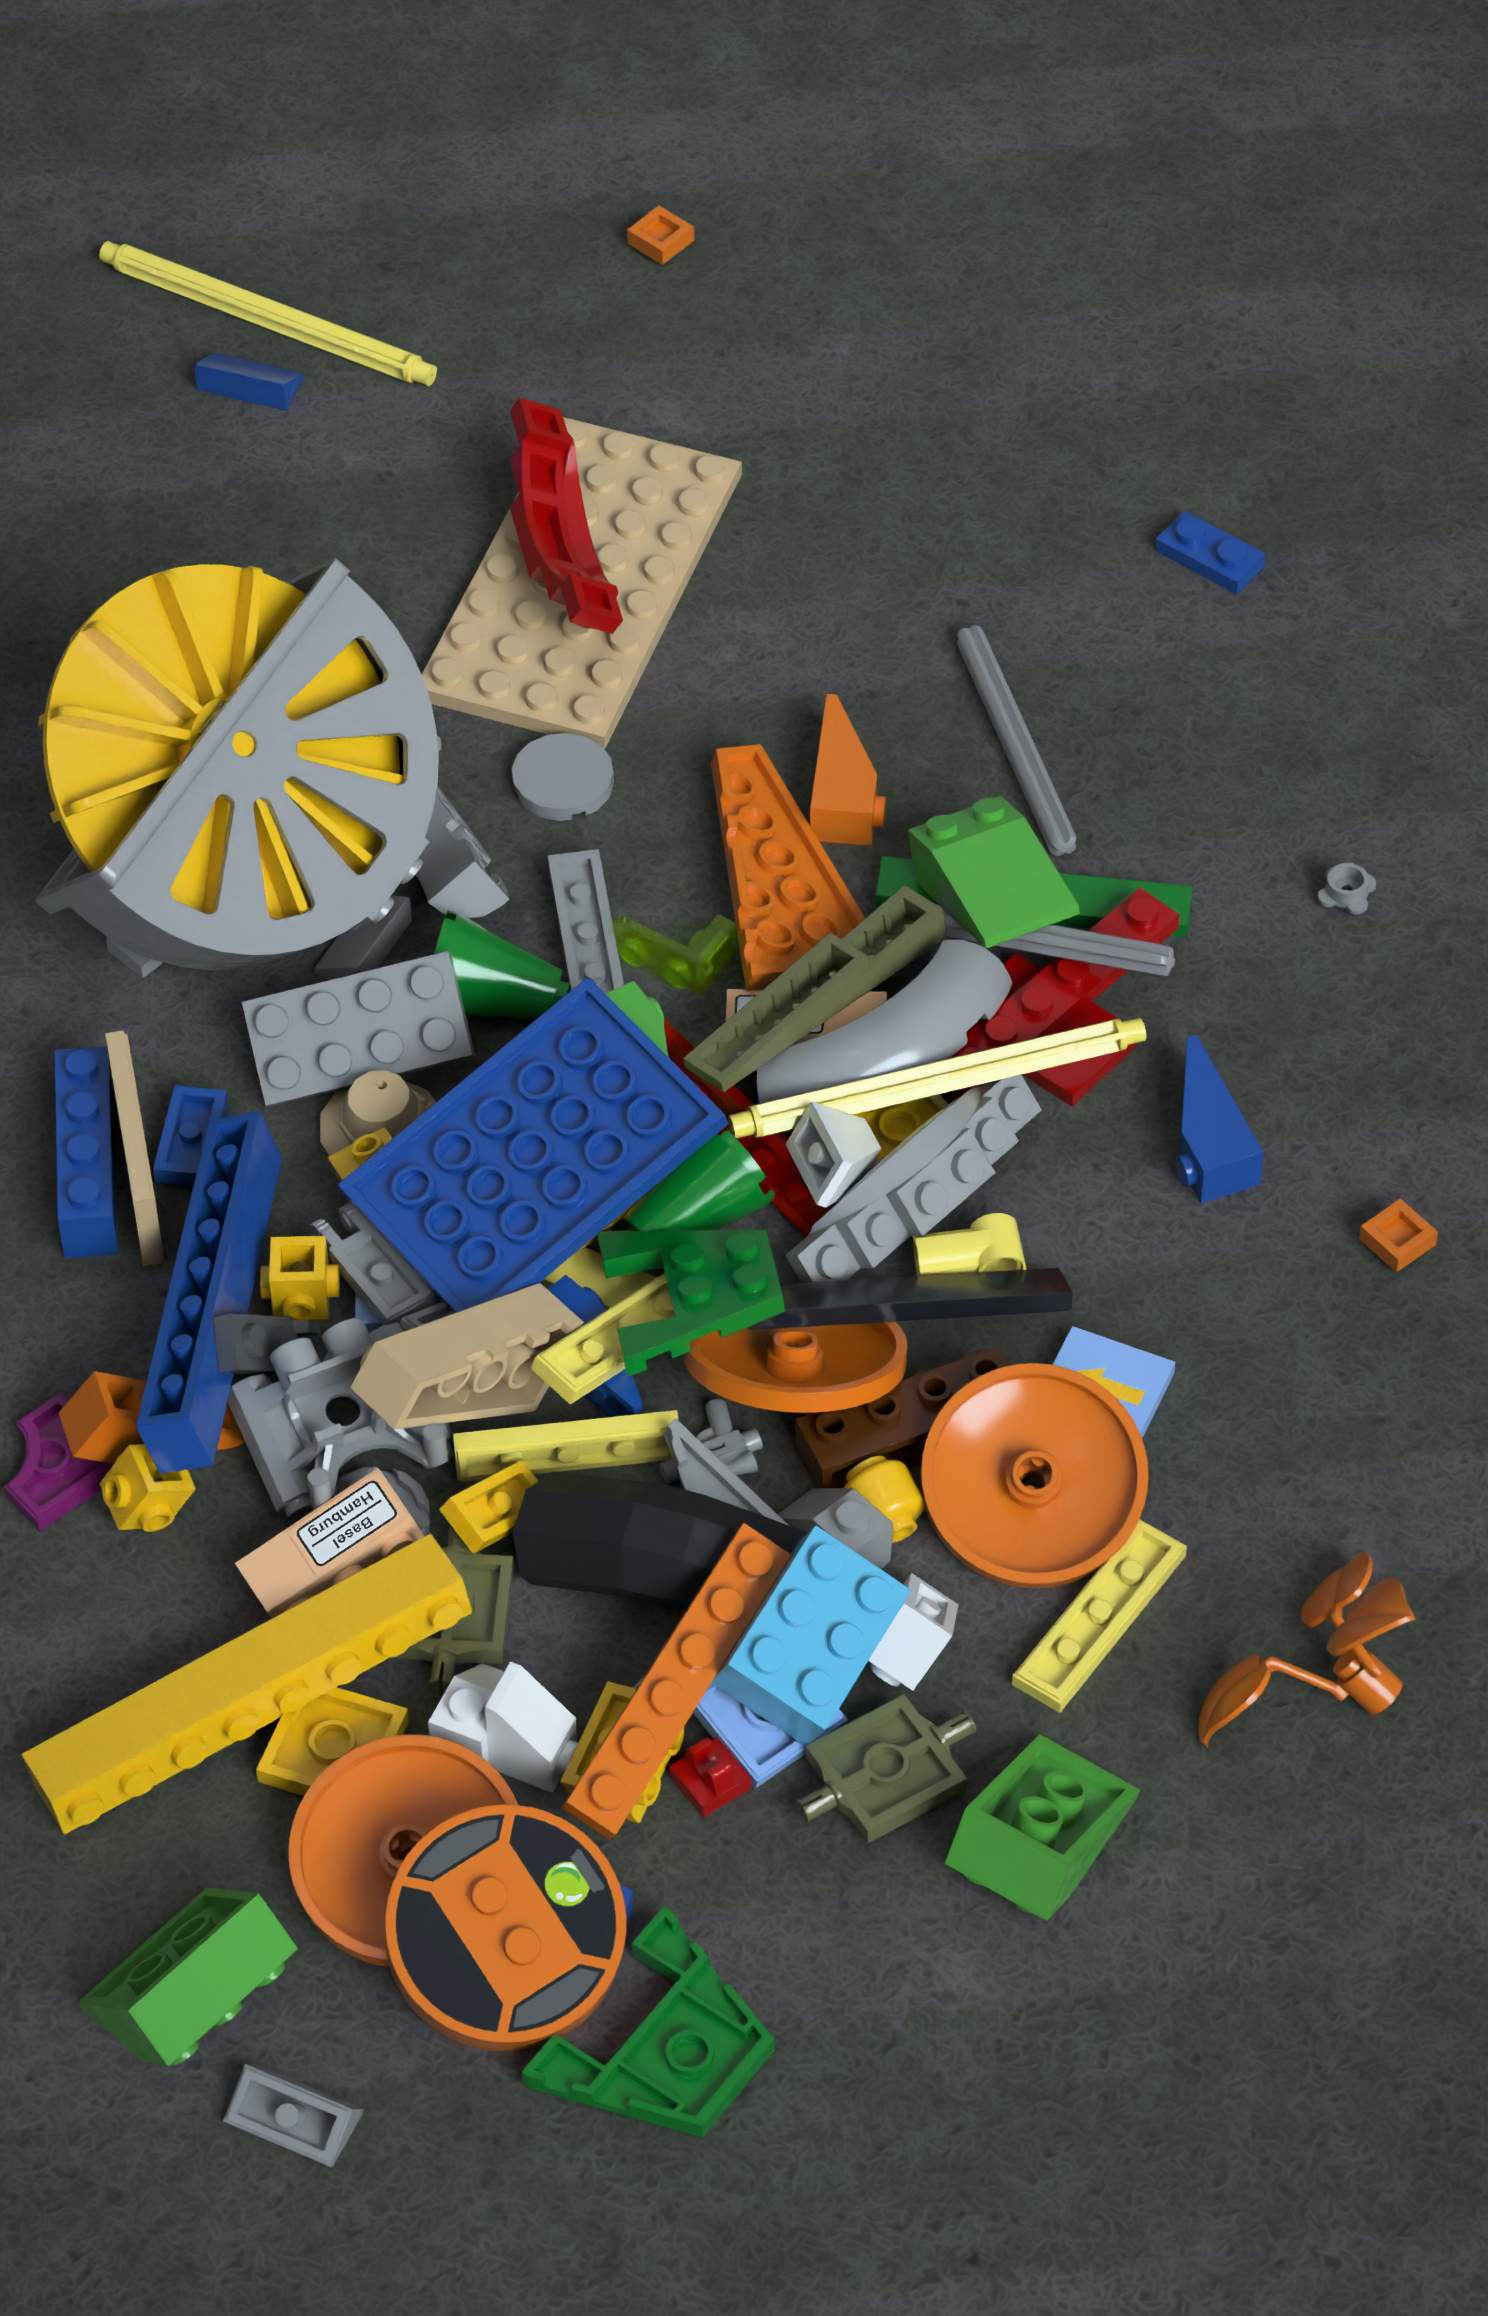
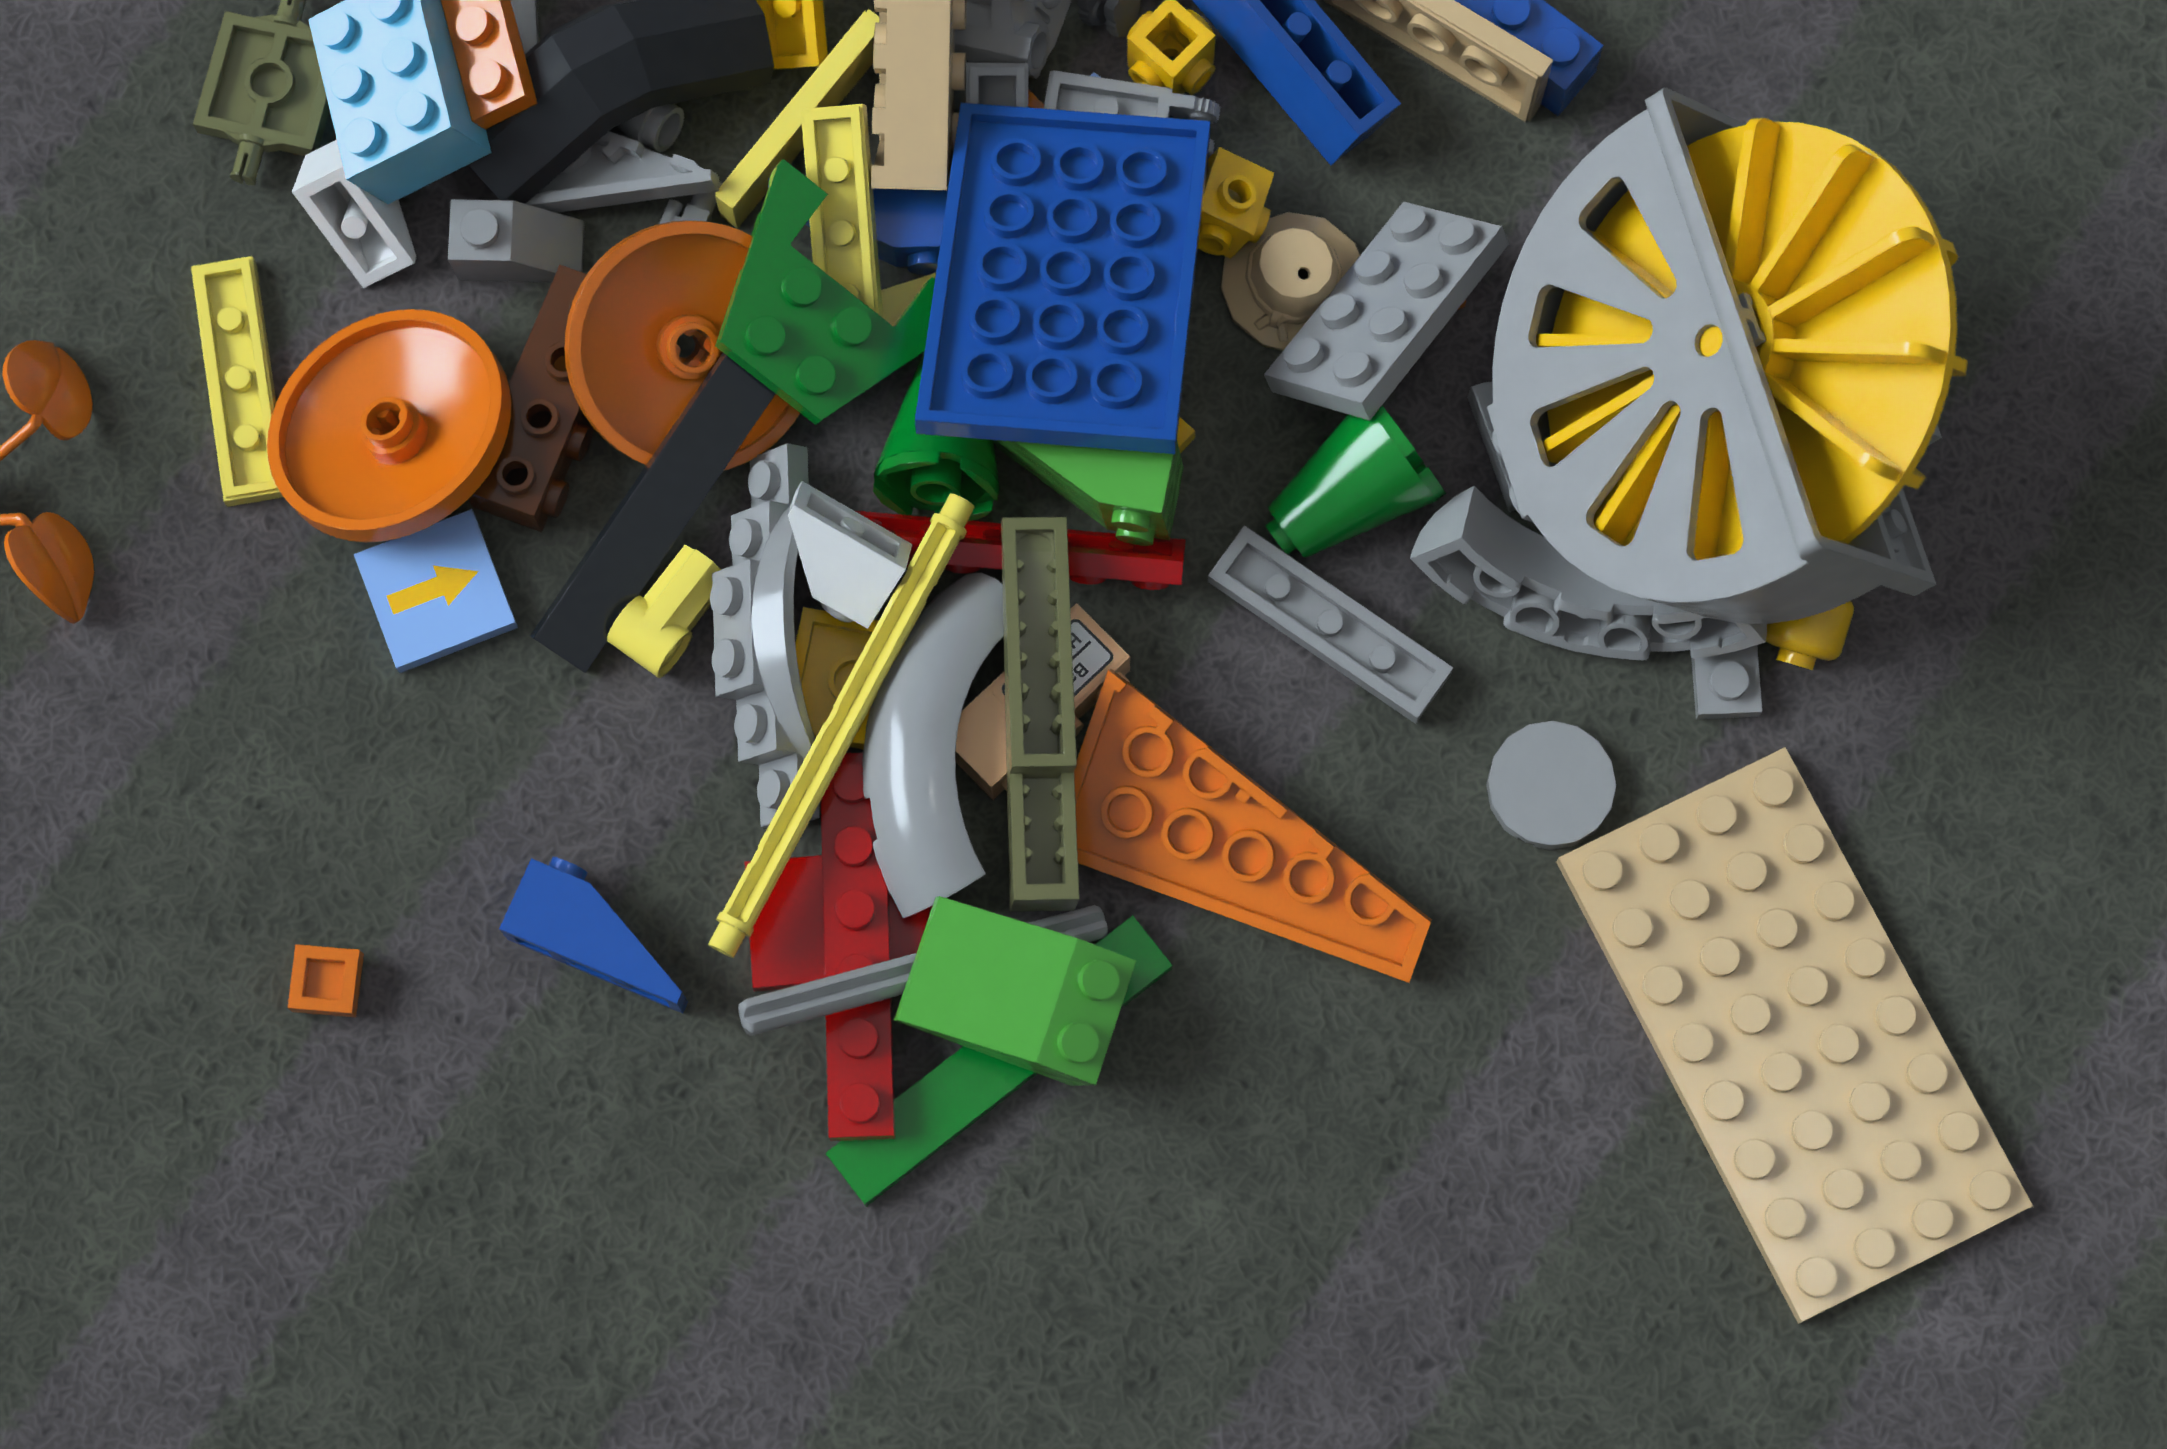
camera: 135 degrees right, 25 degrees up
(186, 1132) = (1431, 114): blue plate -> none
(553, 519) = (1835, 1016): red piece -> none
(679, 965) = (1210, 705): clear neon green bracket -> none
(845, 783) = (1285, 1008): orange slope -> none
(891, 1490) = (499, 303): yellow head -> none
(1016, 741) = (1199, 1231): light grey axle -> none
(1039, 1826) = (100, 148): bright green slope -> none
(1349, 877) = (710, 1337): light grey plate -> none

